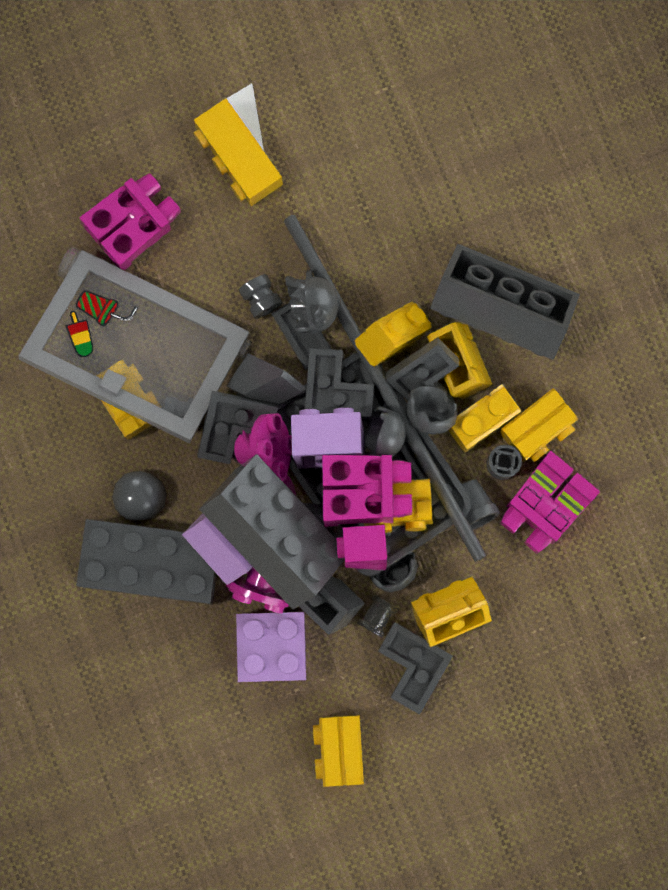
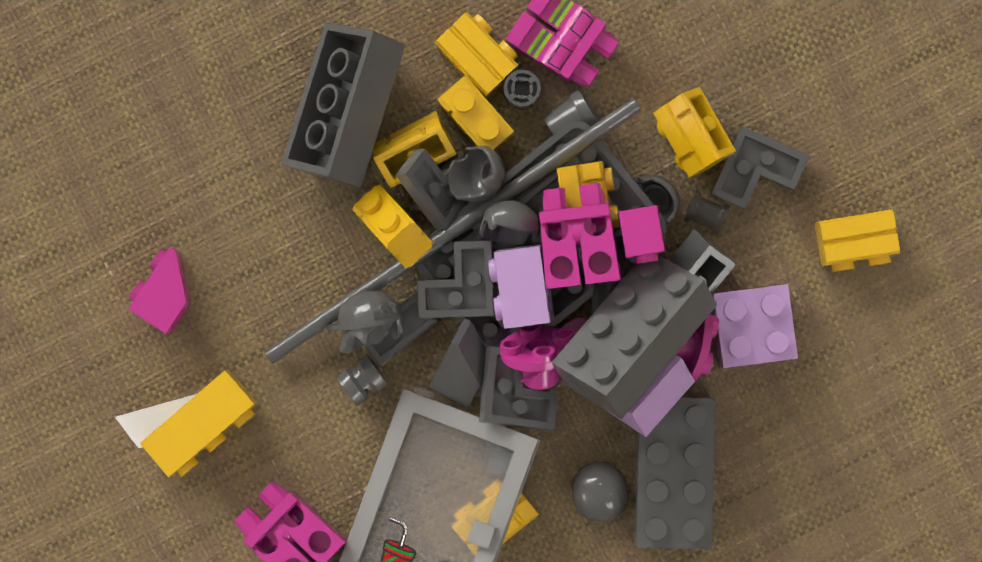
camera: 95 degrees left, 5 degrees up
(353, 134) = (164, 294): none -> dark pink slope

